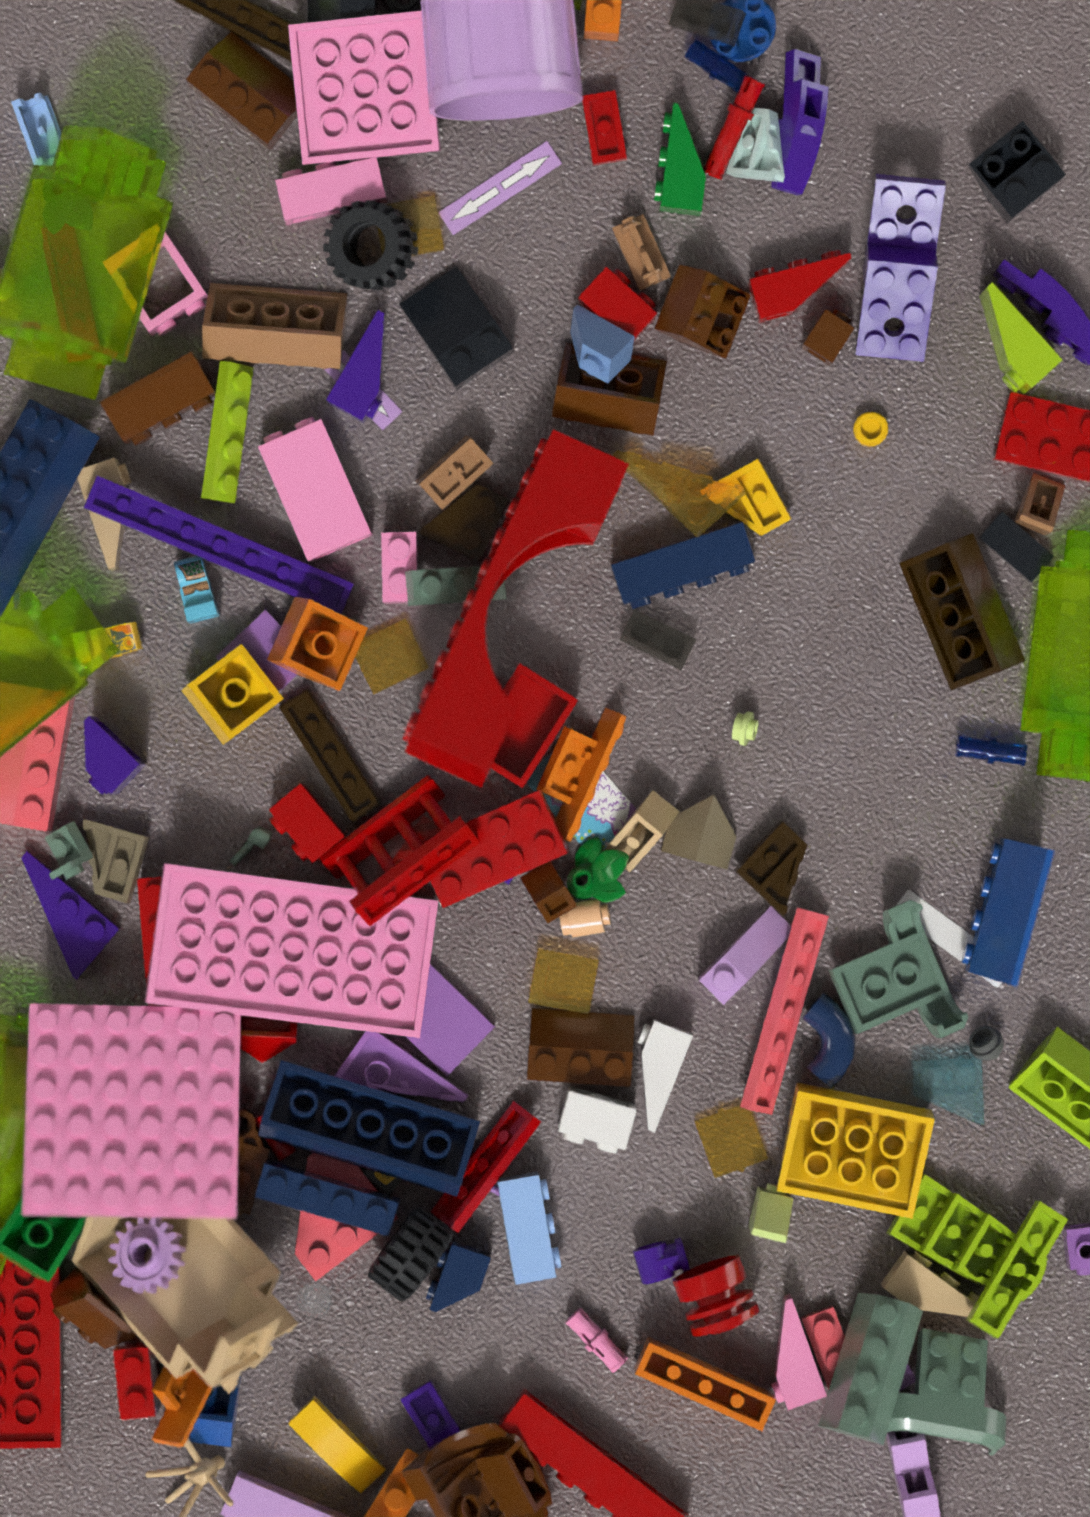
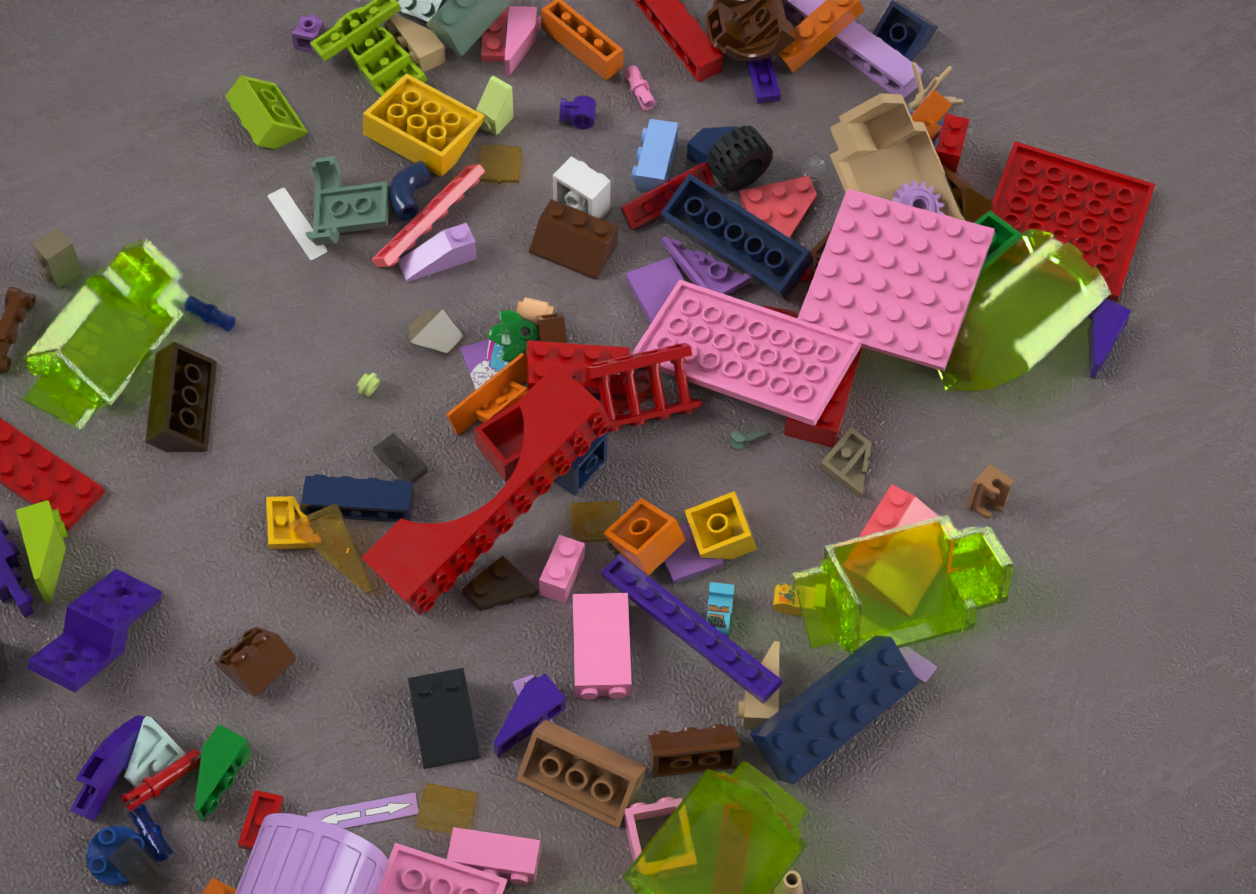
camera: 160 degrees left, 30 degrees down
(69, 850) = (879, 474): sand green bracket -> none
(76, 923) = (891, 433): dark purple wing -> none
(108, 758) = (825, 512): dark purple slope -> none
(227, 432) = (650, 709): lime plate -> none
(305, 823) = (702, 433): red brick -> none
(327, 1197) = (781, 206): dark blue brick -> none
(330, 755) = (666, 471): dark brown tile -> none
(336, 1444) = (833, 88): yellow slope -> none
(344, 240) = (490, 776): black tyre -> none
(444, 586) = (531, 539): sand green plate -> none
(454, 472) = (493, 619): medium nougat hinge -> none
(563, 981) = (567, 283): clear yellow piece -> none
(599, 345) = (344, 659): medium blue slope -> none
(618, 304) = (316, 687): red brick -> none
(625, 403) = (350, 633): reddish brown slope -> none
(641, 252) = (279, 721): medium nougat hinge -> none
(643, 828) = (468, 347): tan slope -> none
(661, 1058) = (522, 215): white slope -> none
(716, 1296) = (551, 75): red wheel -> none
(774, 865) = (391, 299): dark brown wing -> none
(785, 291) = (184, 651): red slope -> none
(828, 336) = (174, 608): reddish brown brick -> none
(870, 429) = (179, 541): yellow tile -> none
(951, 1084) = (343, 143): clear light blue wing -> none
(986, 1043) = (307, 153): dark grey plate -> none
(1008, 911) = (248, 207): blue slope -> none
(1016, 547) = (121, 429): black tile -> none
(1040, 505) = (90, 444): medium nougat slope -> none

